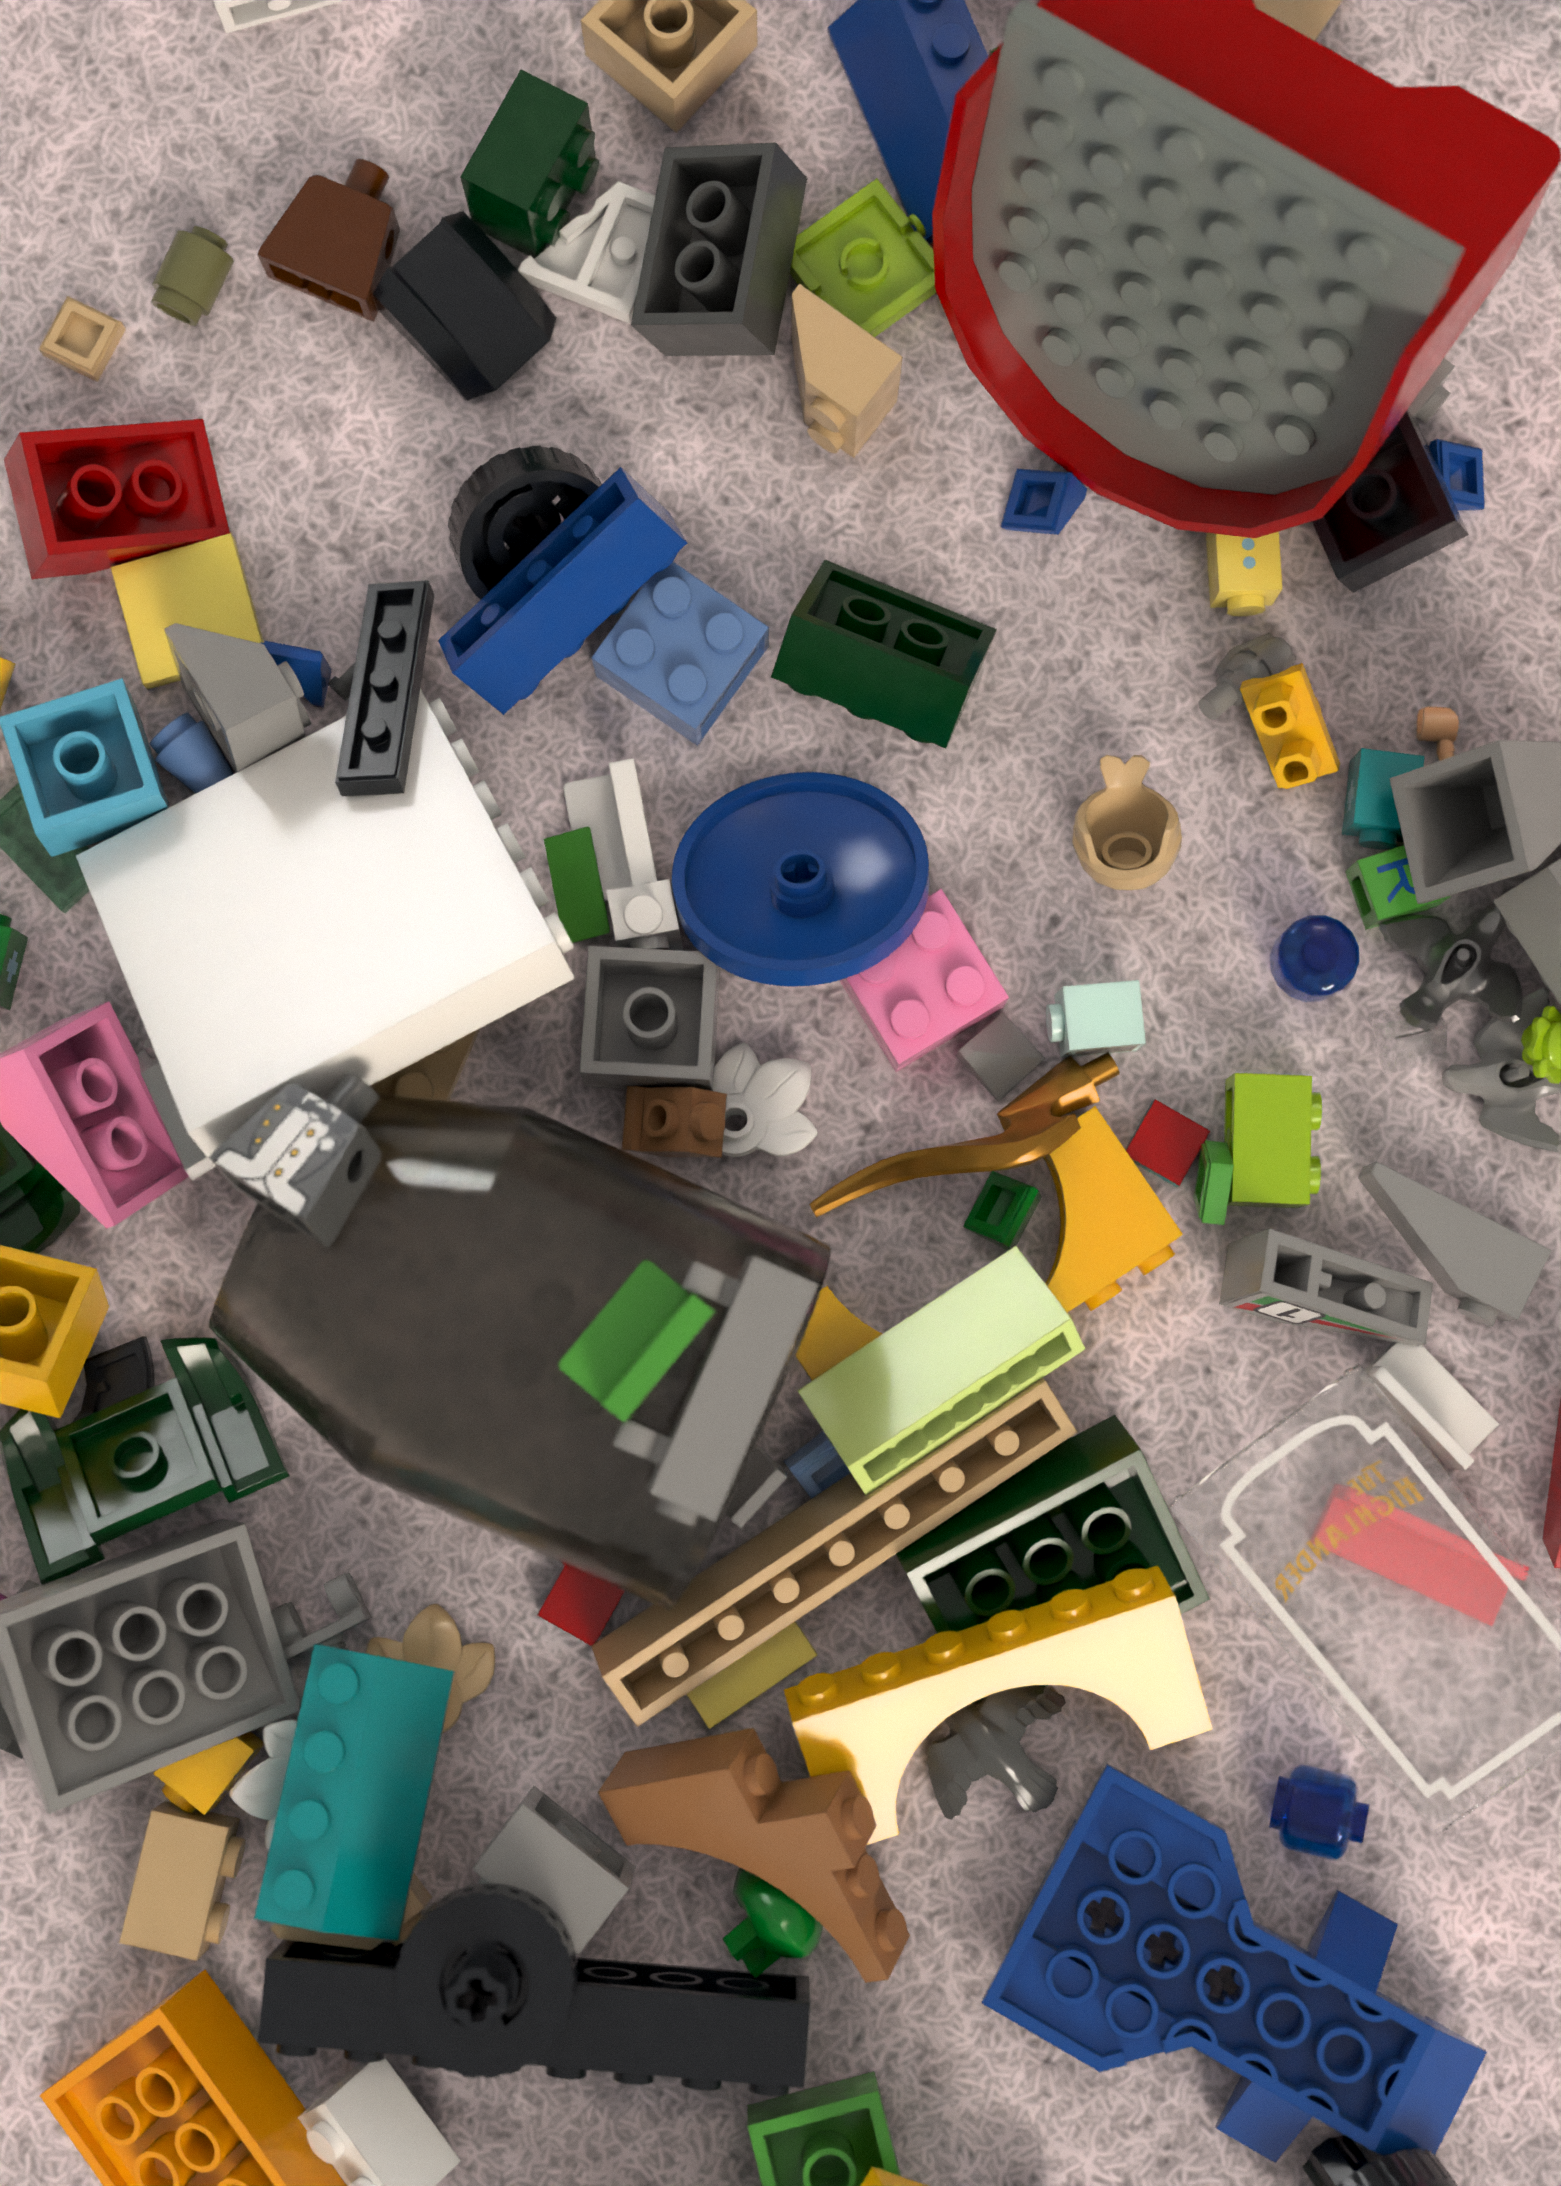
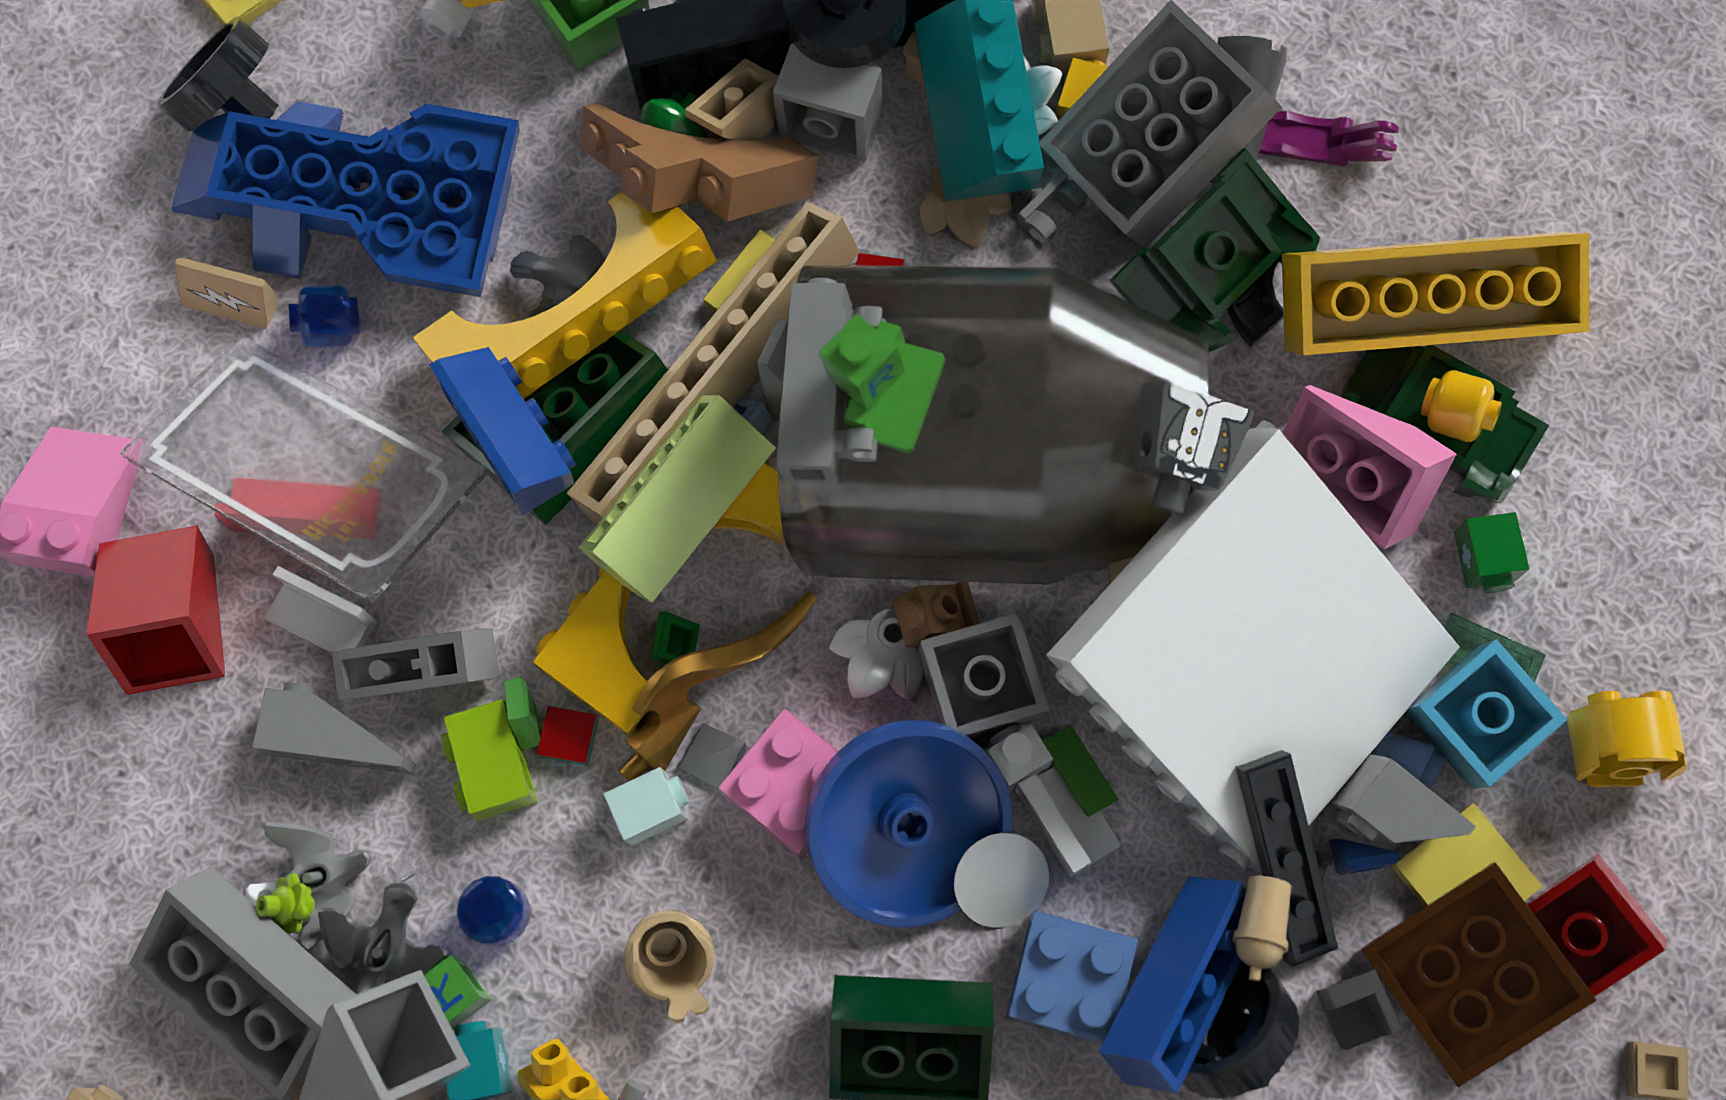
camera: 165 degrees right, 10 degrees down
(230, 496) = (1477, 974): none -> reddish brown plate
(376, 514) = (1359, 1010): none -> dark grey panel
(448, 614) = (1263, 924): none -> tan piece
(670, 1358) = (862, 361): none -> bright green brick
(678, 1909) = (738, 104): none -> tan slope
(716, 789) = (1001, 880): none -> white sticker
(1131, 1517) = (505, 426): none -> blue slope
(1443, 1898) = (225, 293): none -> tan slope

